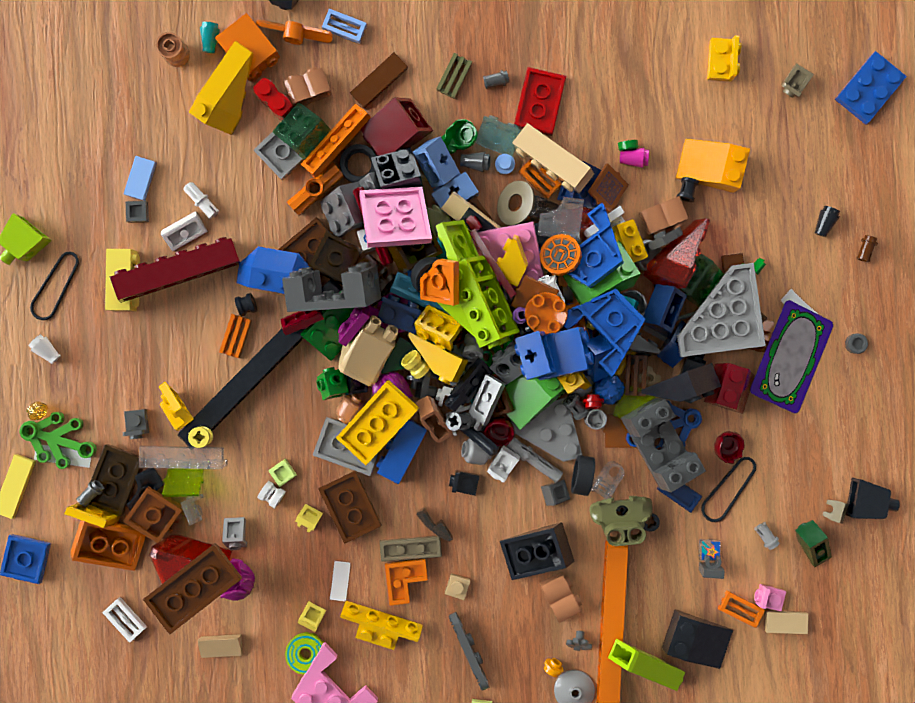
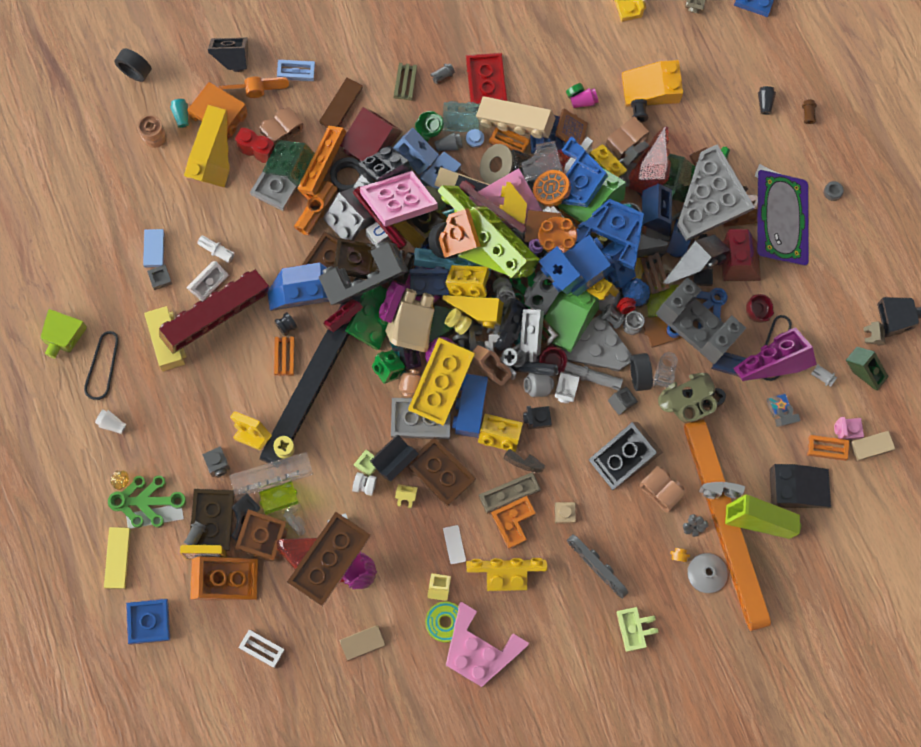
camera: 25 degrees left, 15 degrees down
(308, 479) = (393, 458): none -> black panel
(422, 486) = (500, 432): none -> yellow bracket
(612, 622) = (715, 489): none -> light grey slope
(731, 505) = (784, 356): none -> magenta wedge

